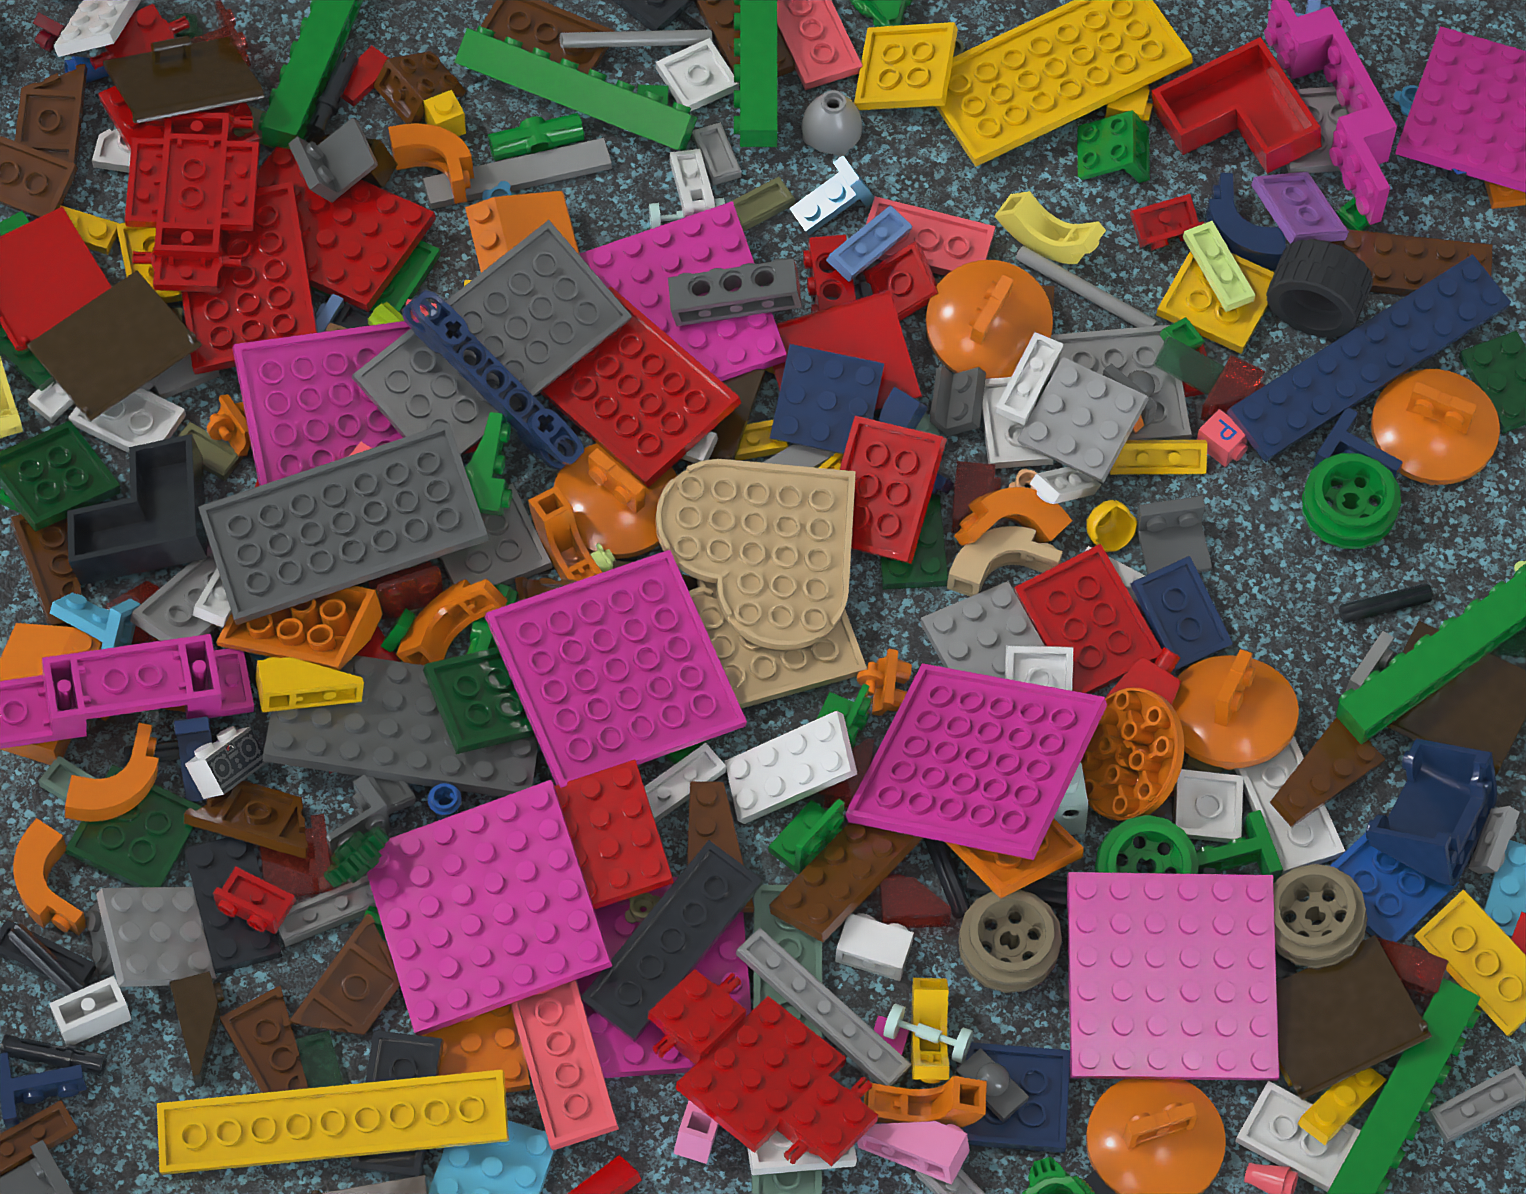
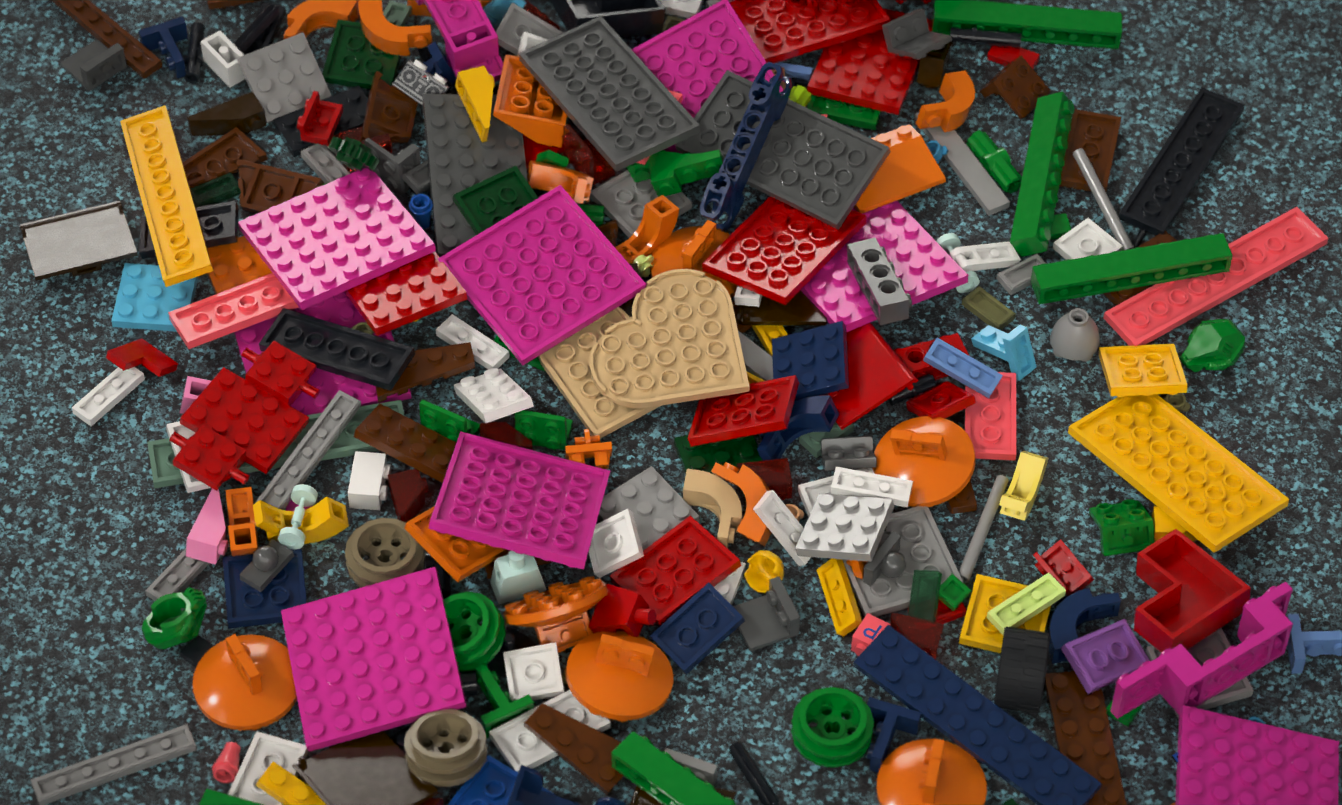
camera: 80 degrees right, 10 degrees down
(445, 112) = (990, 104): yellow brick -> none

